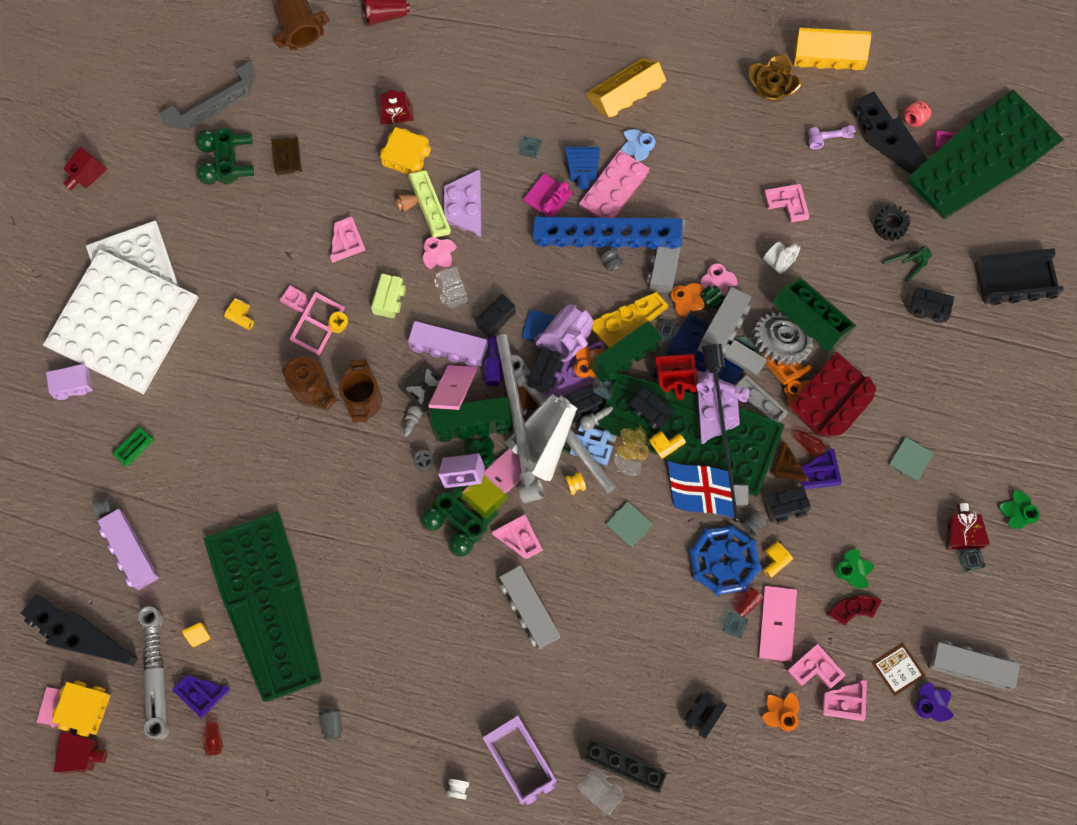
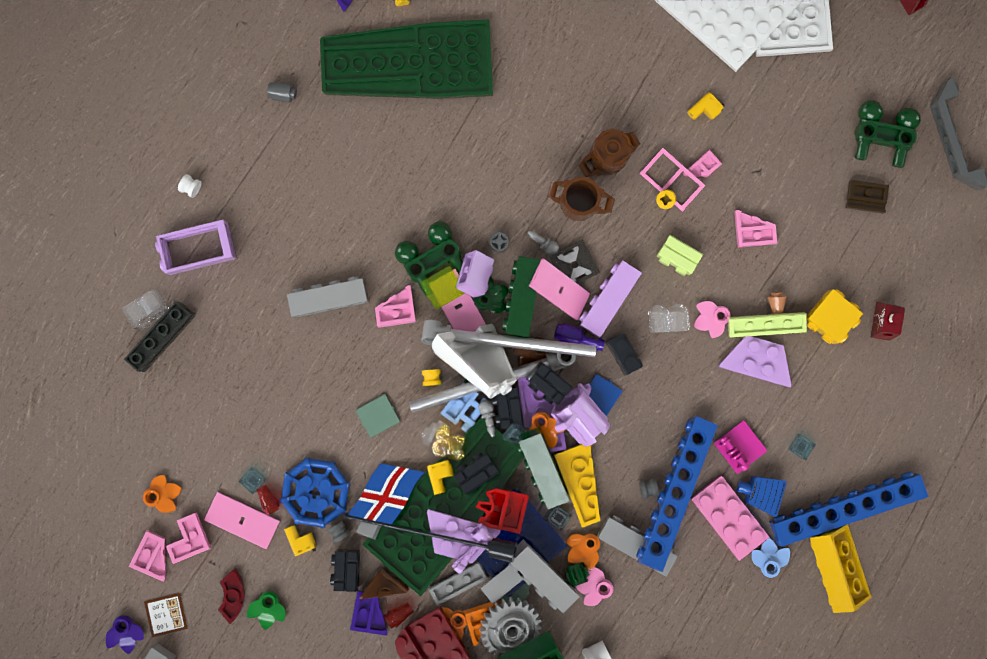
camera: 105 degrees right, 15 degrees up
(540, 49) = (914, 491): none -> blue brick
(692, 717) = (181, 413): black brick -> none

